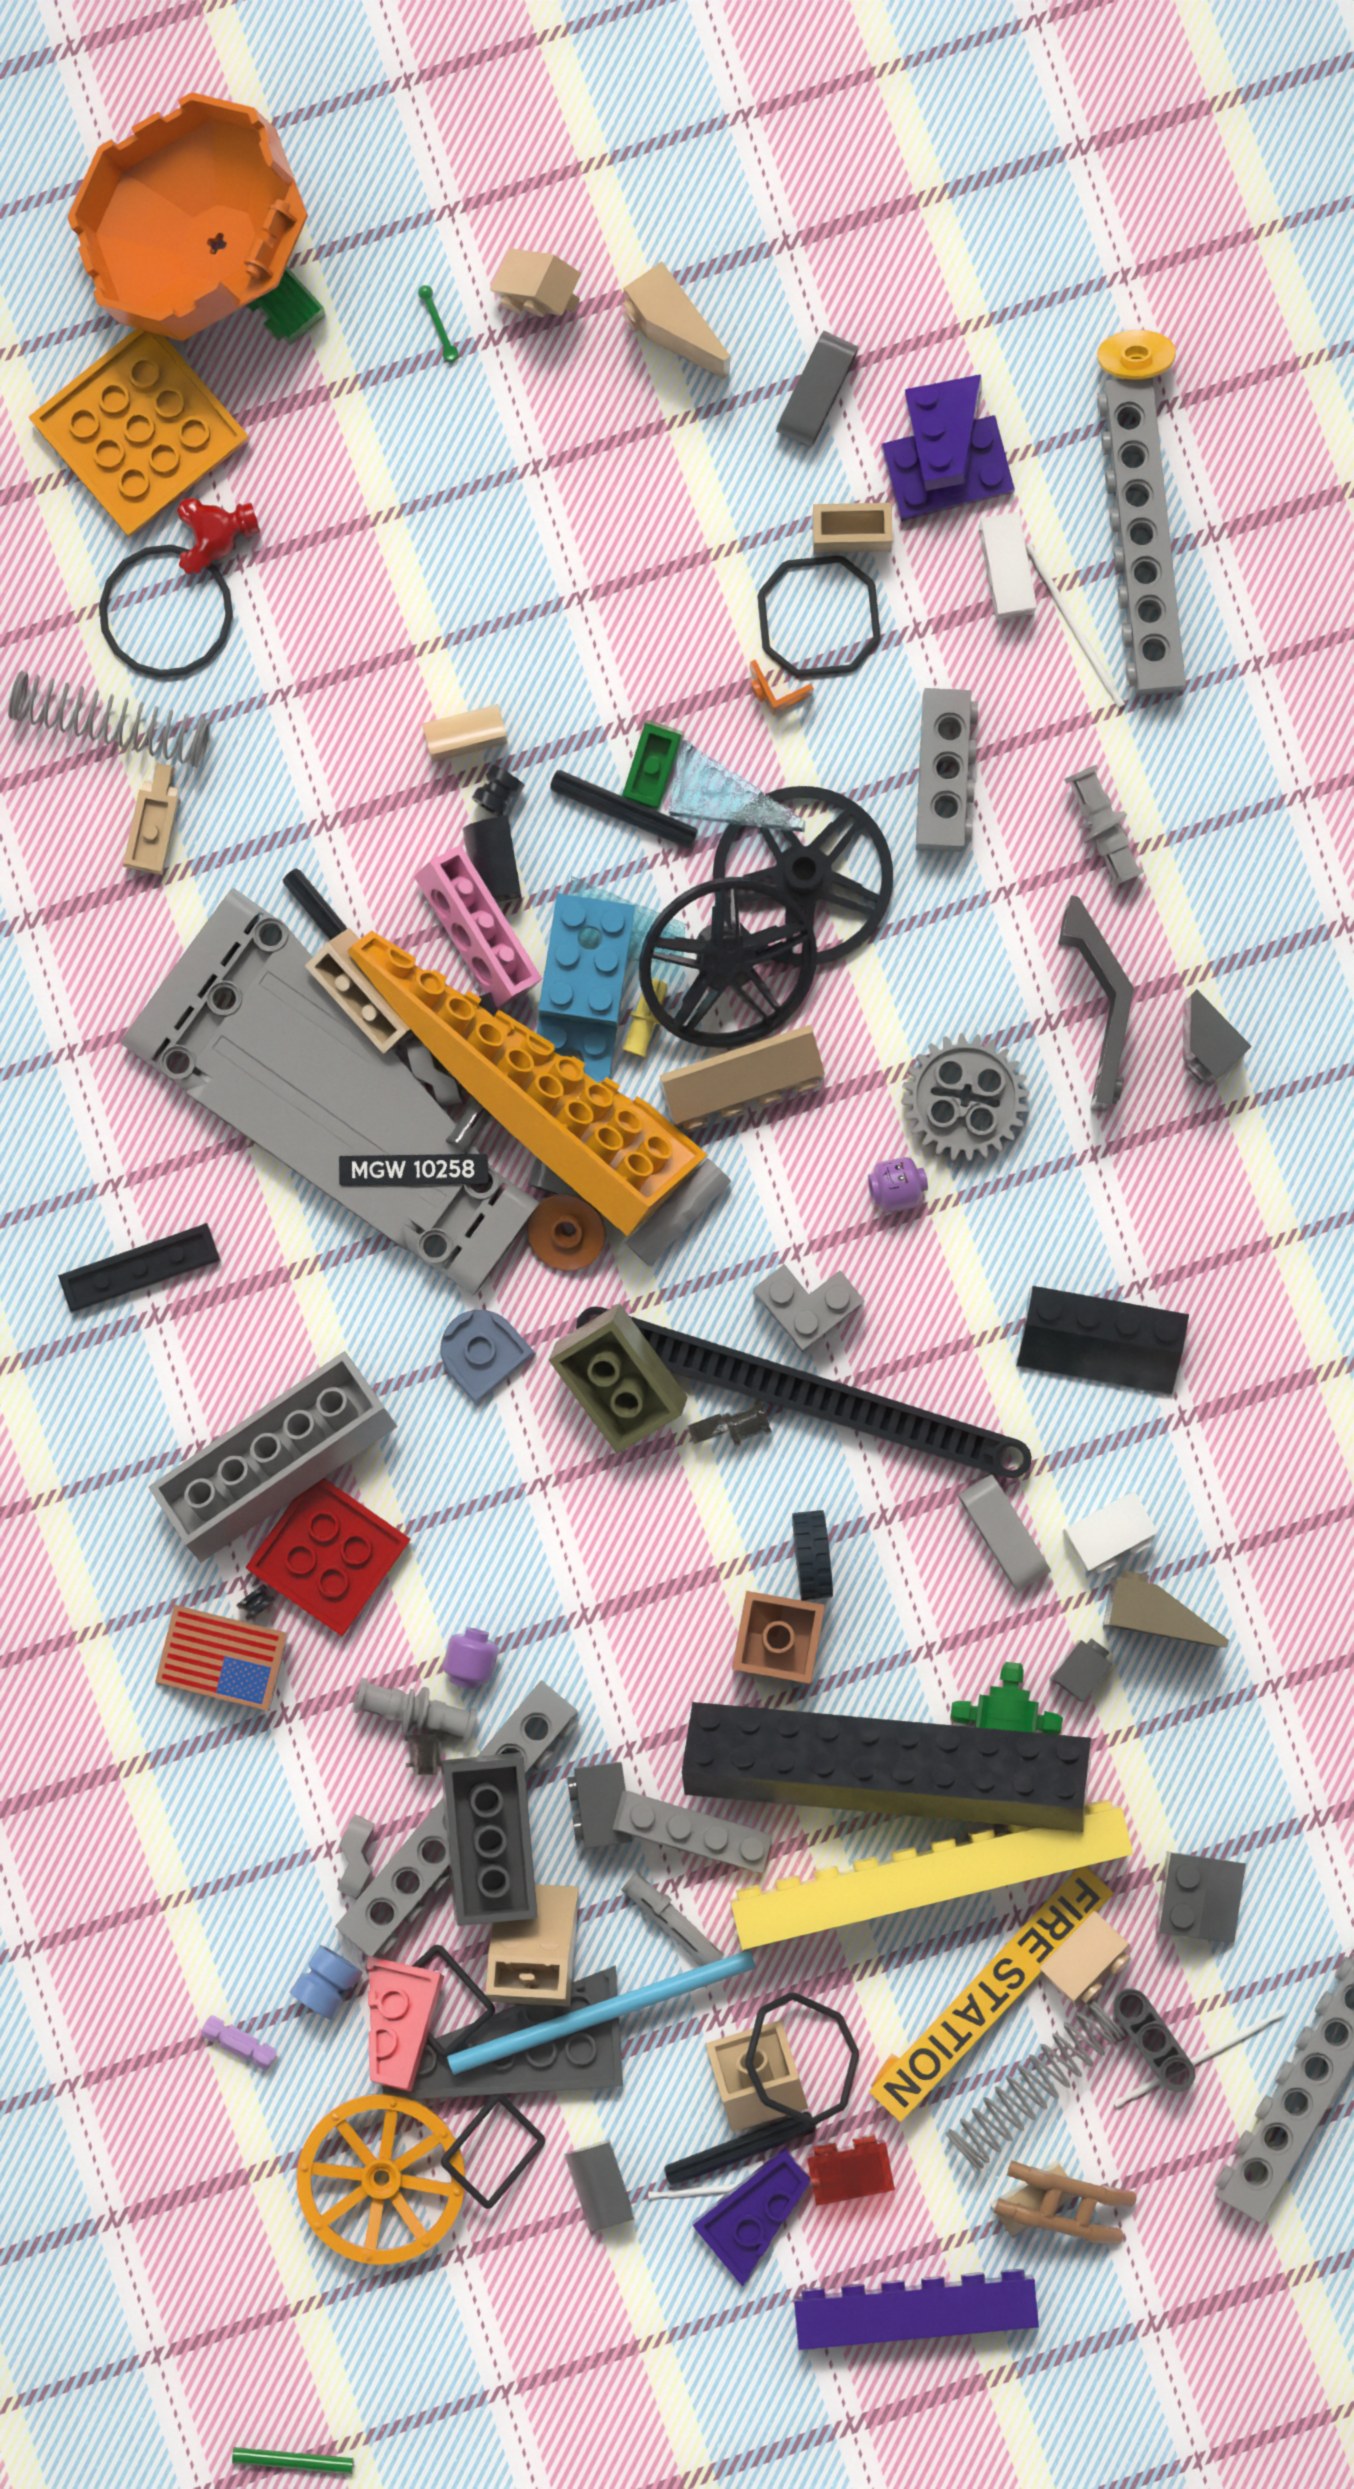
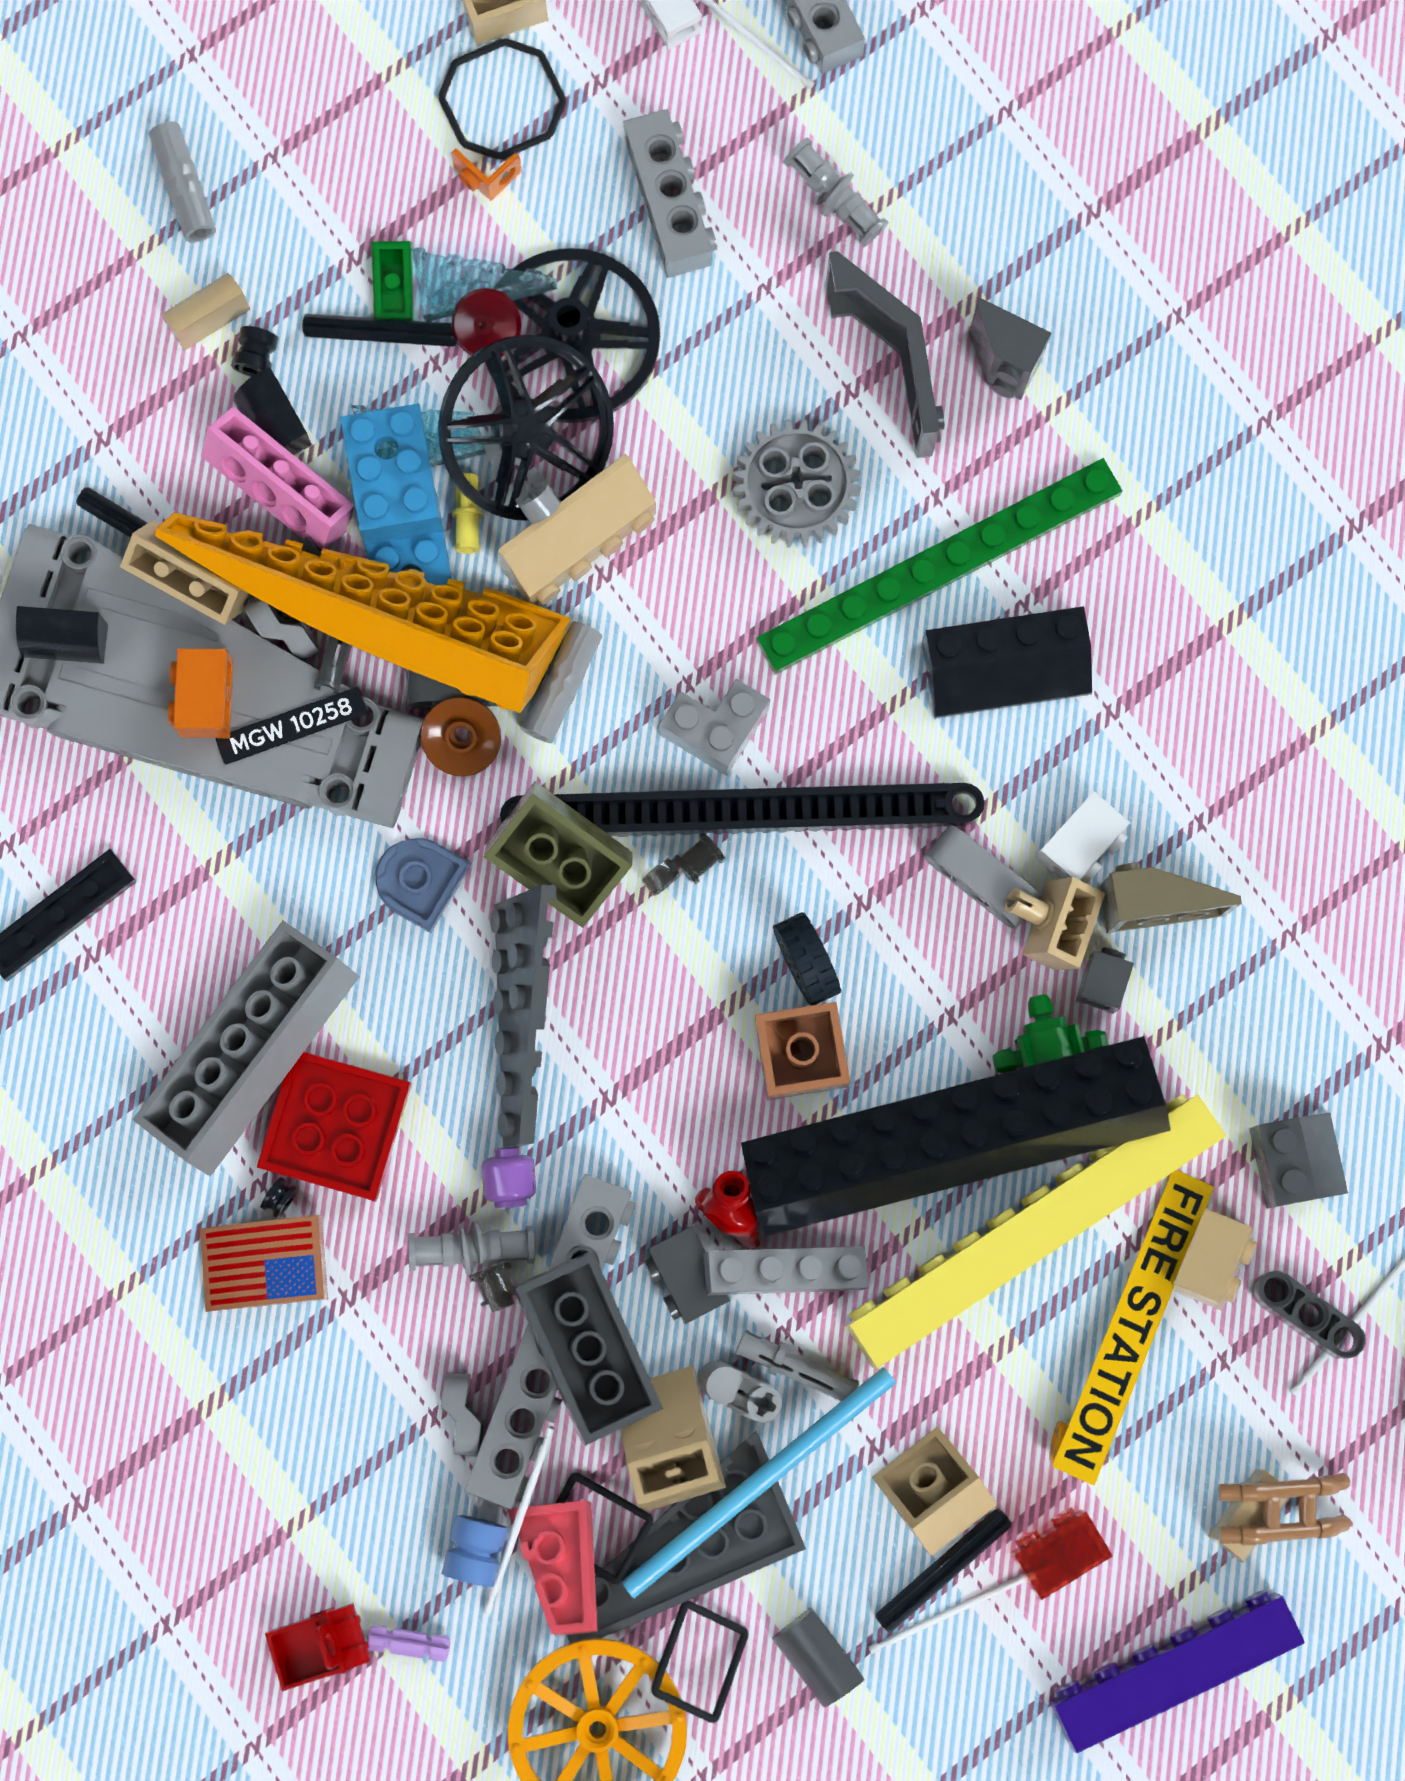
camera: 20 degrees left, 5 degrees down
(158, 2017) = (318, 1646): none -> red piece
(229, 1012) = (61, 634): none -> black brick
(340, 1113) = (201, 693): none -> orange brick
(375, 1968) = (519, 1518): none -> white piece
(485, 598) = (182, 182): none -> light grey axle
(535, 1505) = (520, 1005): none -> dark grey wing
(627, 1938) = (722, 1382): none -> light grey piece
(662, 1757) = (731, 1208): none -> red animal
(714, 1041) = (539, 502): none -> light grey piece
(725, 841) = (484, 318): none -> dark red piece
(752, 2212) = (978, 1631): dark purple wing -> none
(753, 2046) = (922, 1465): black piece -> none
(897, 1184) = (761, 584): medium lavender head -> none
(971, 2153) = (1250, 1312): light grey piece -> none
(1058, 1600) = (1059, 921): none -> tan brick
(1073, 1222) = (939, 566): none -> green plate

